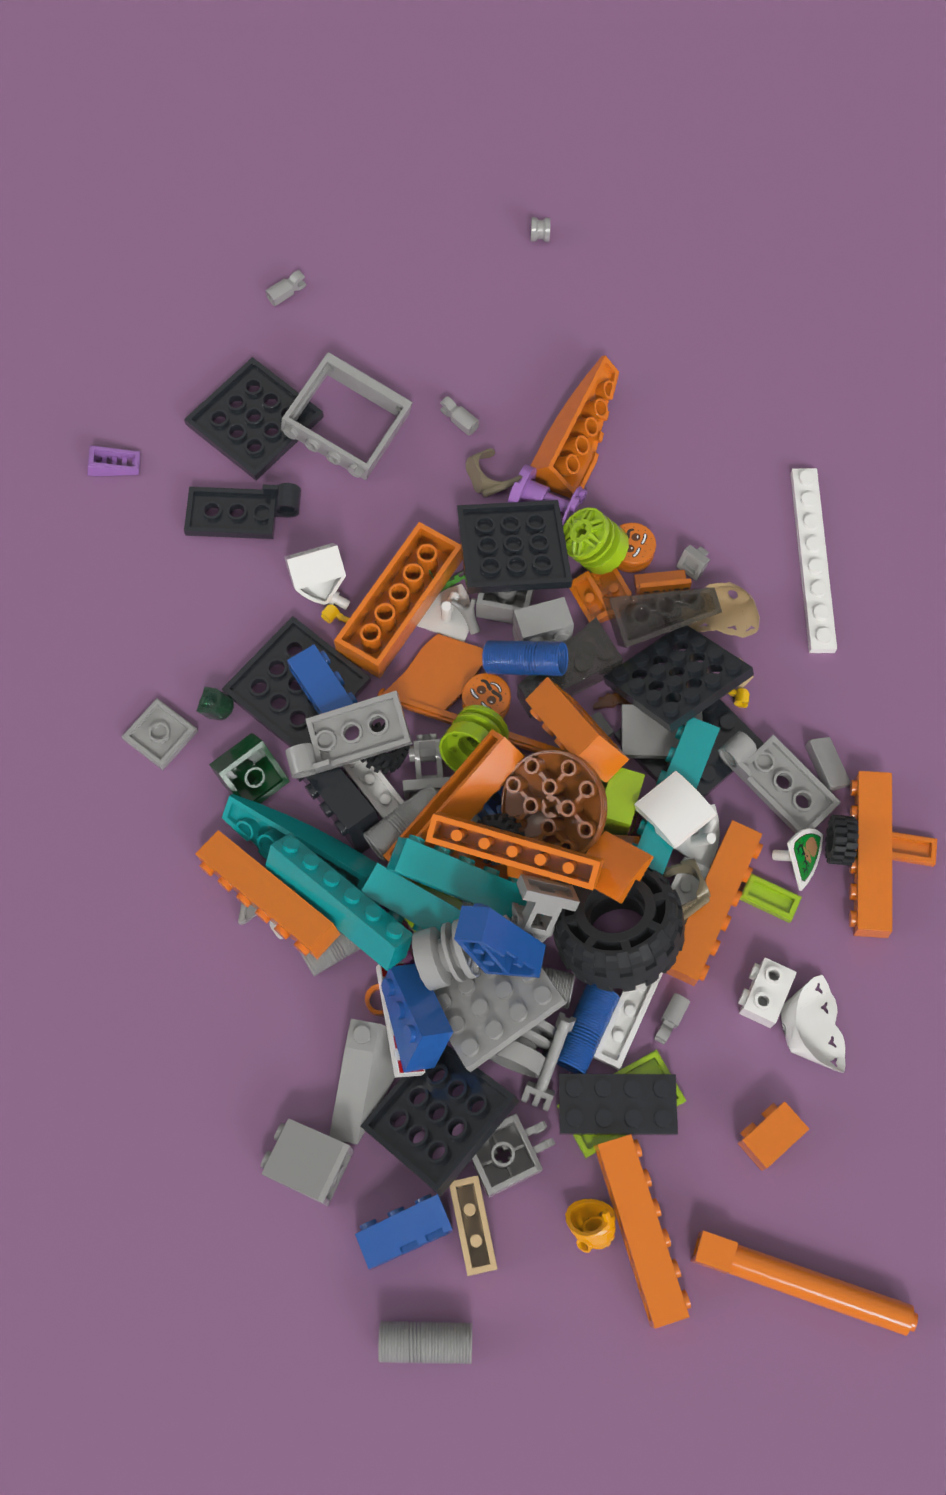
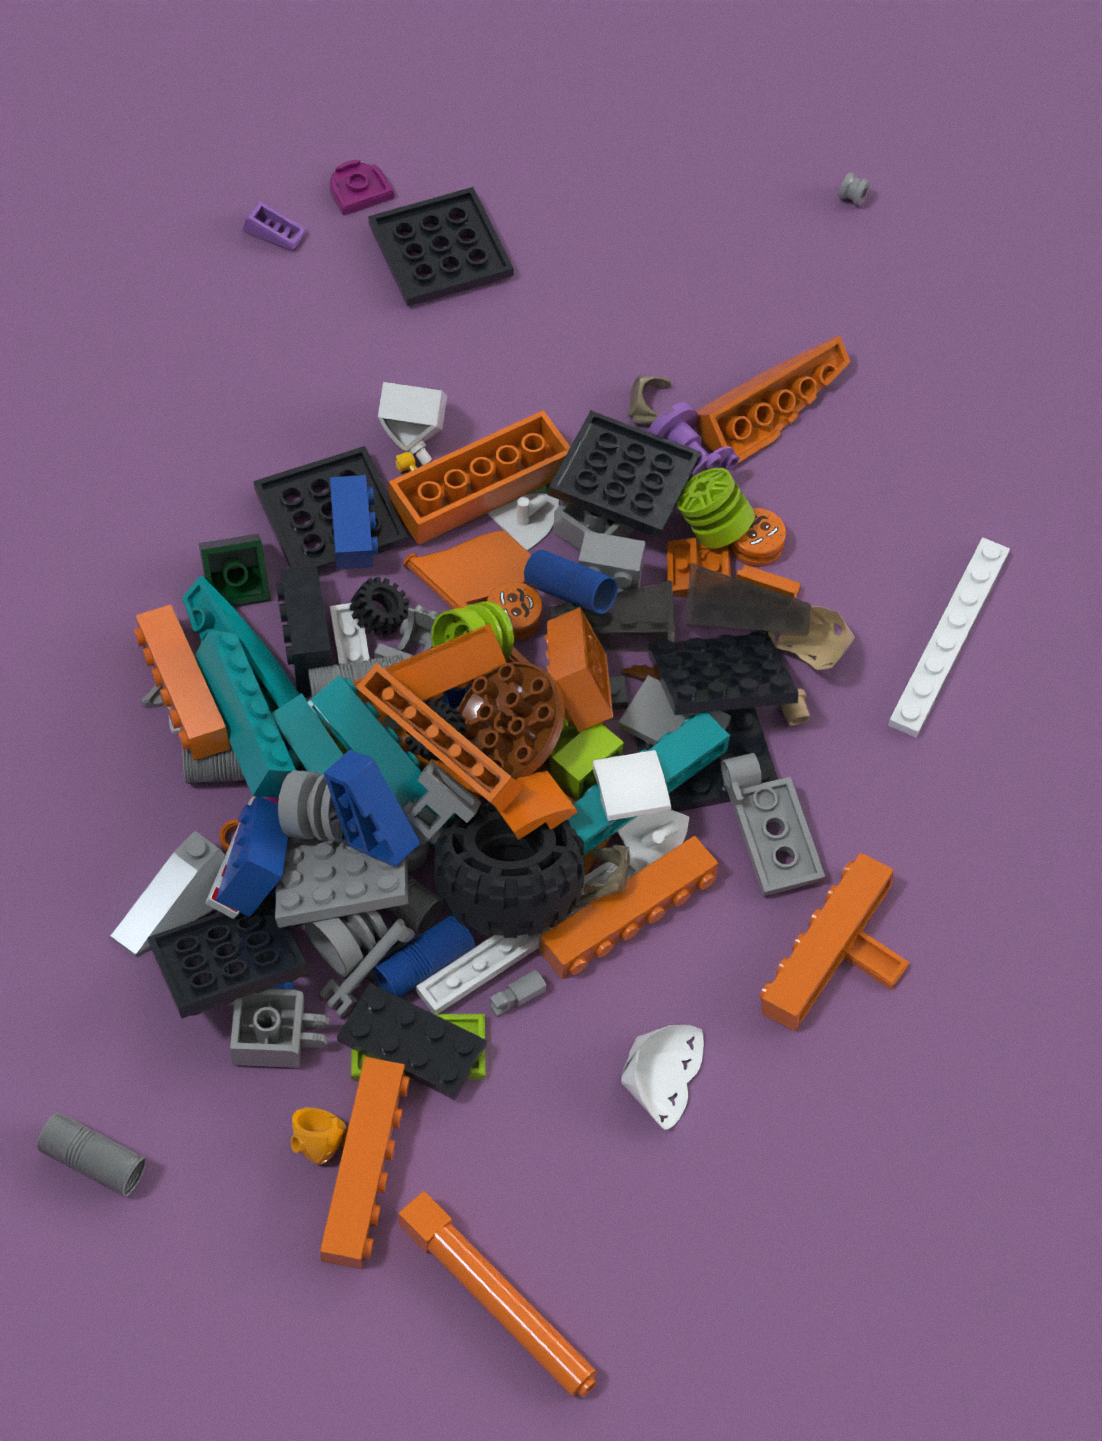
camera: 25 degrees right, 10 degrees down
(159, 734) = (169, 497): light grey tile -> none
(160, 396) = (359, 186): none -> magenta tile
(215, 704) = (242, 497): clear green plate -> none
(259, 509) = (393, 329): black hinge -> none
(285, 288) = (548, 136): light grey bar -> none
(307, 1161) = (78, 942): light grey slope -> none
(328, 738) = (329, 559): light grey hinge -> none
(360, 384) = (567, 257): light grey window -> none
(403, 1231) = (132, 1047): blue wedge -> none
(459, 416) = (654, 334): light grey bar -> none
(469, 614) = (545, 526): light grey bar -> none
(473, 1226) = (199, 1074): tan brick -> none
(694, 561) = (815, 579): light grey tile -> none
(741, 697) = (784, 730): yellow hand -> none
(766, 992) = (630, 1015): white brick -> none
(770, 898) = (694, 934): lime tile -> none
(773, 1135) = (551, 1145): orange brick -> none
(803, 853) = (753, 905): shield -> none
(827, 763) = (837, 836): light grey slope -> none
(841, 840) = (799, 908): black tyre -> none

